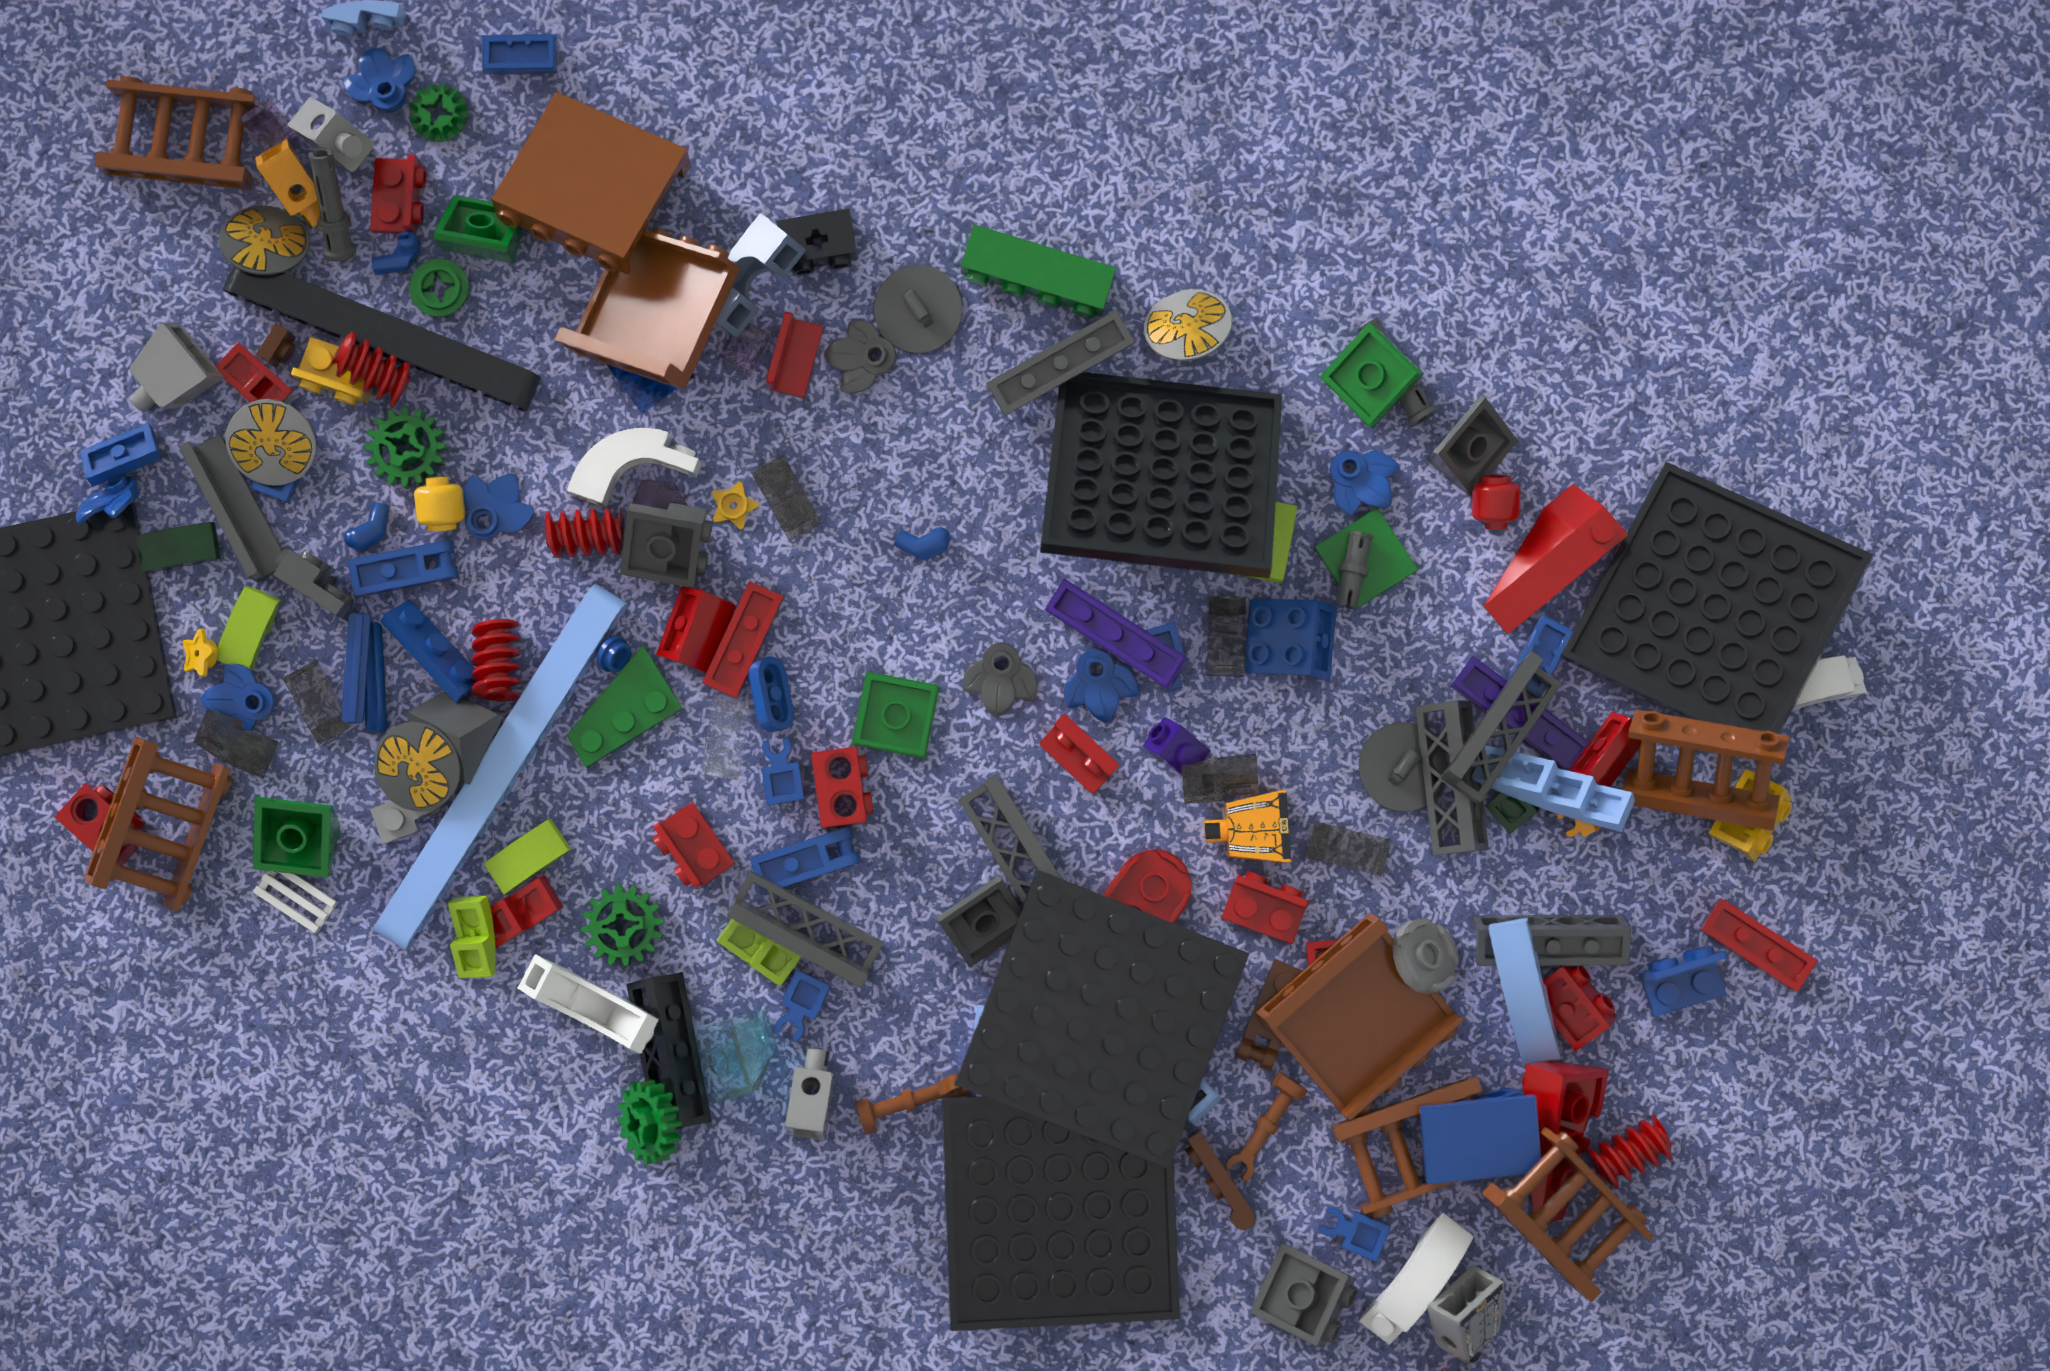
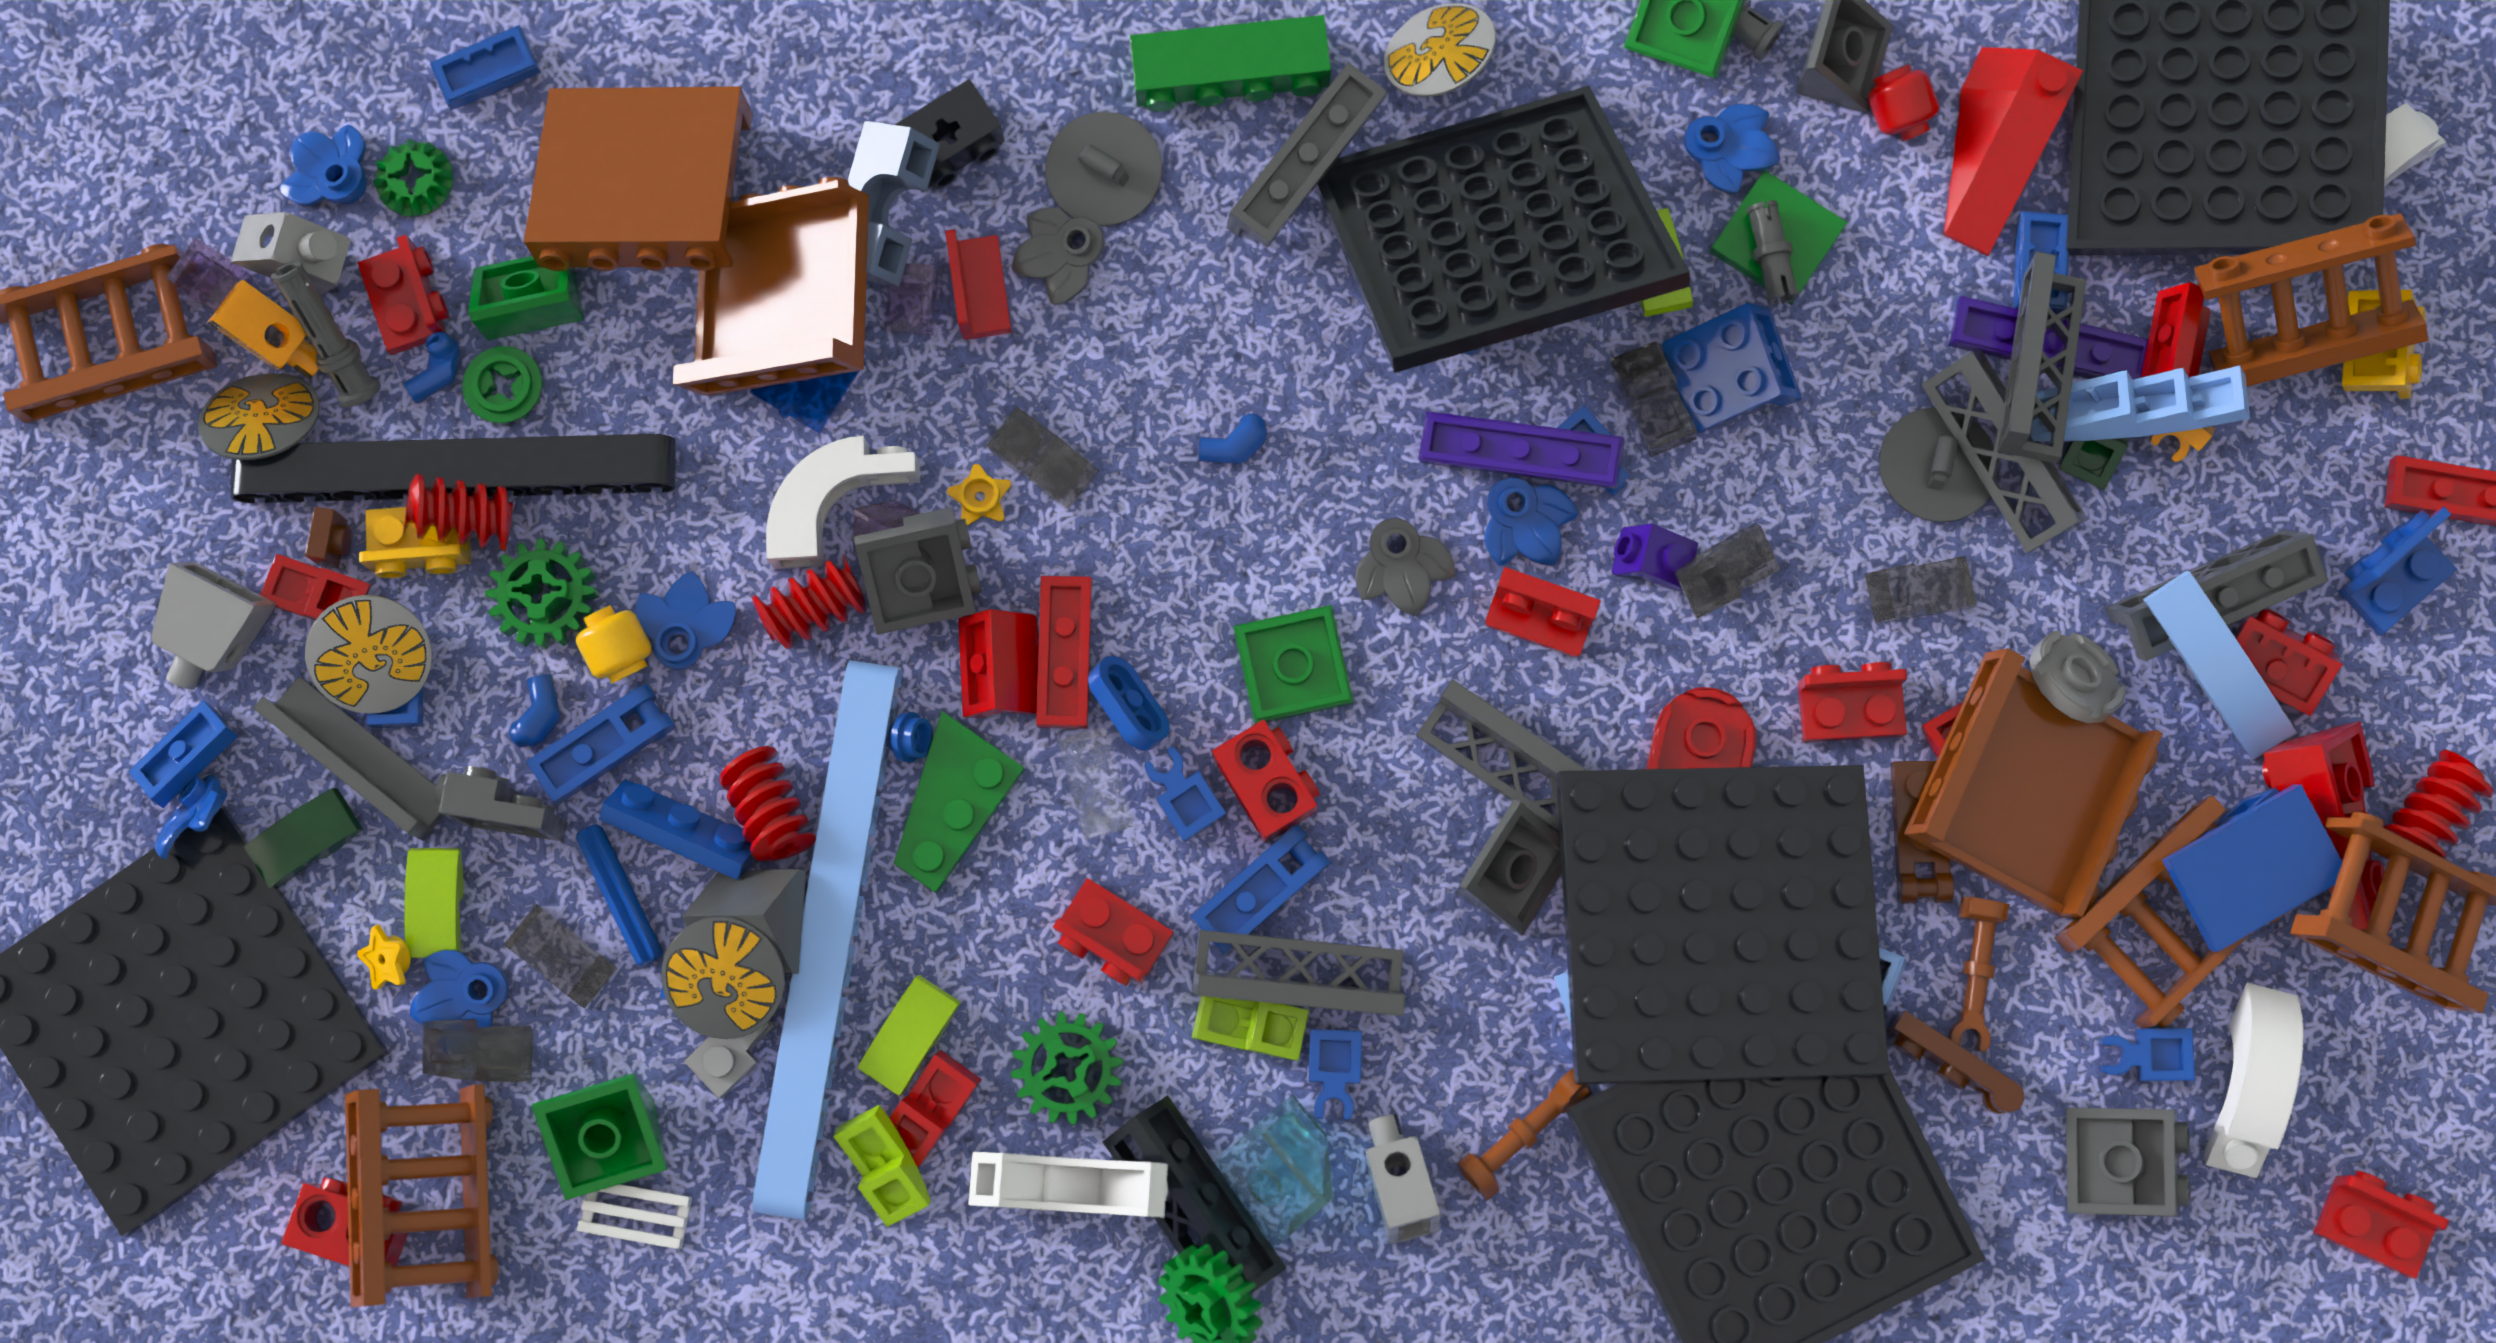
camera: 20 degrees left, 5 degrees down
(353, 16) = (259, 104): light blue slope -> none
(356, 668) = (592, 890): blue axle -> none
(1254, 828) = (1796, 613): light orange torso -> none
(1467, 1314) = (2340, 1108): light grey torso -> none

